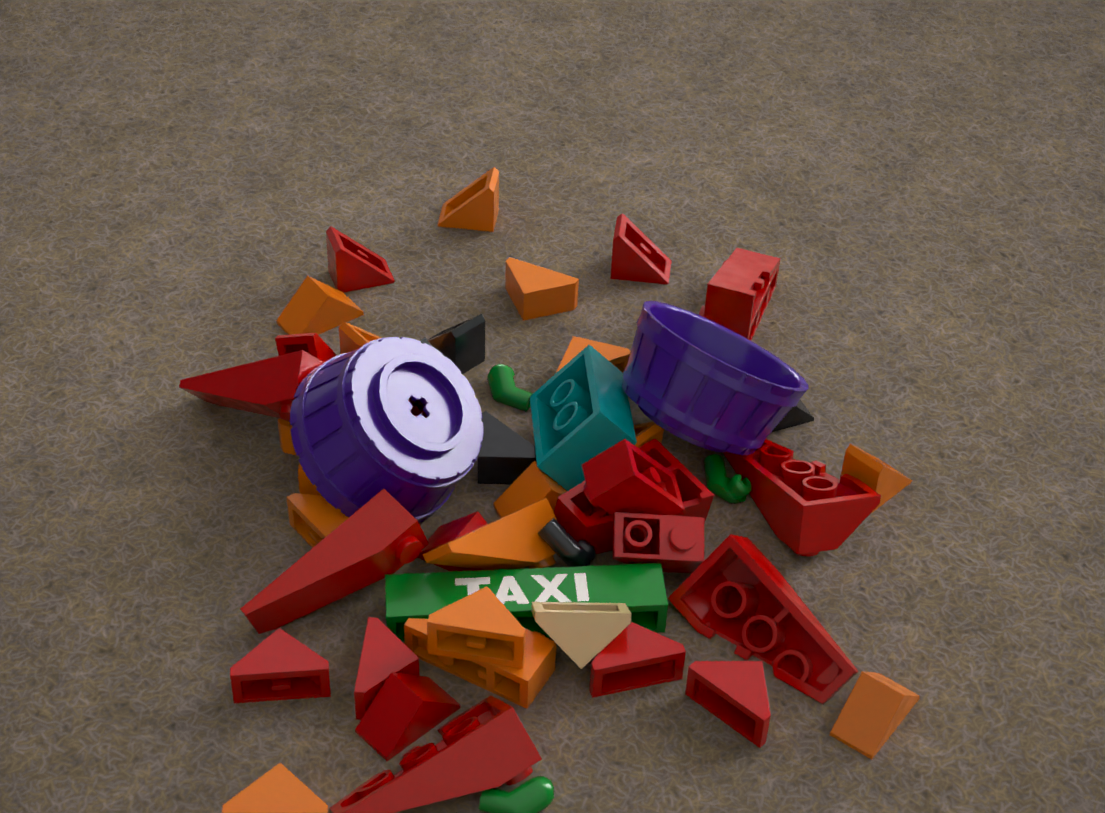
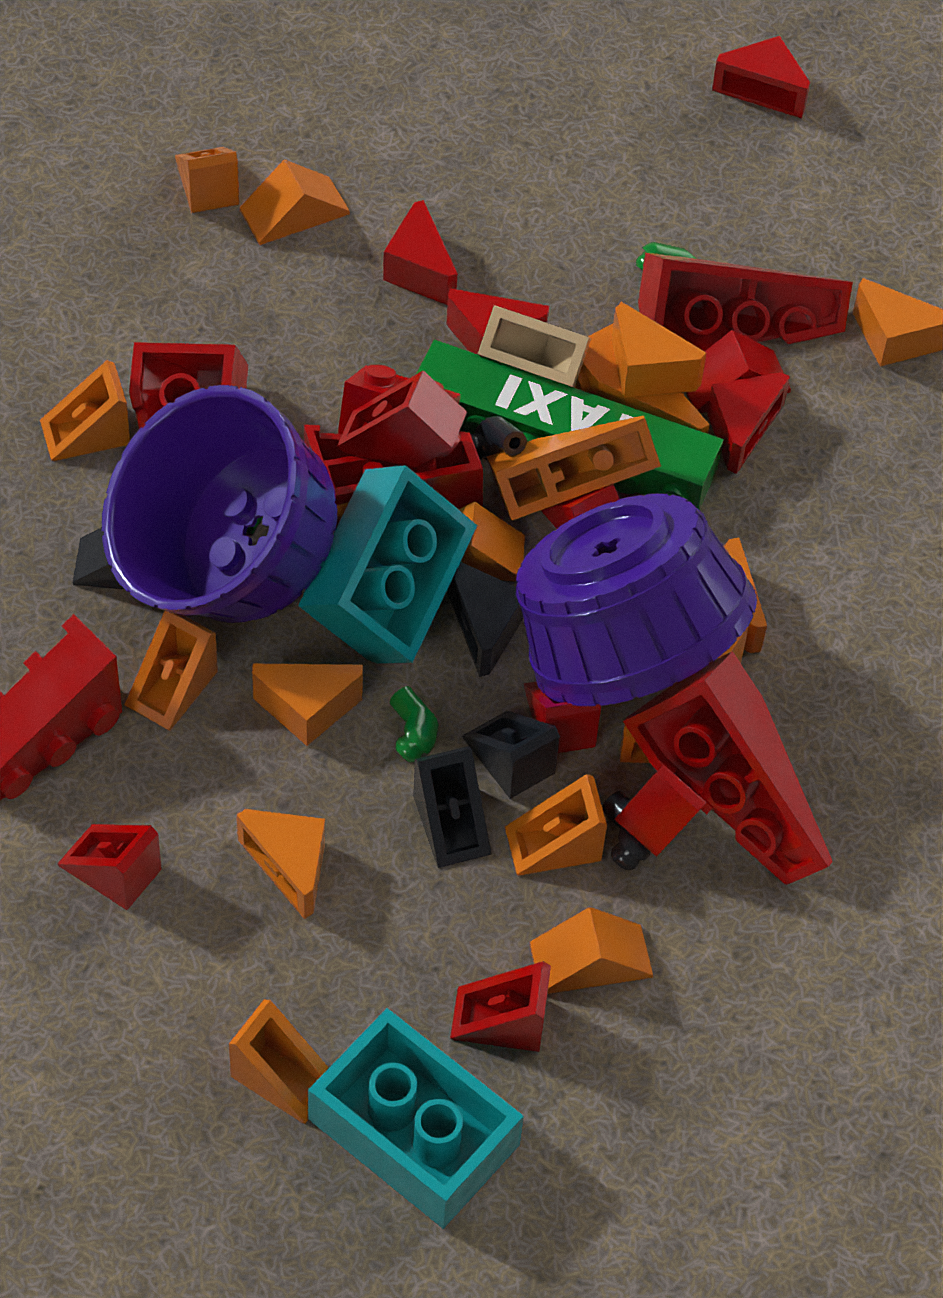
camera: 155 degrees left, 15 degrees up
(280, 671) = (846, 453): red slope -> none
(354, 555) = (756, 504): red wedge -> none
(378, 197) = (415, 1117): none -> teal brick
(757, 610) = (328, 319): red wedge -> none
(967, 696) = (209, 178): none -> orange slope

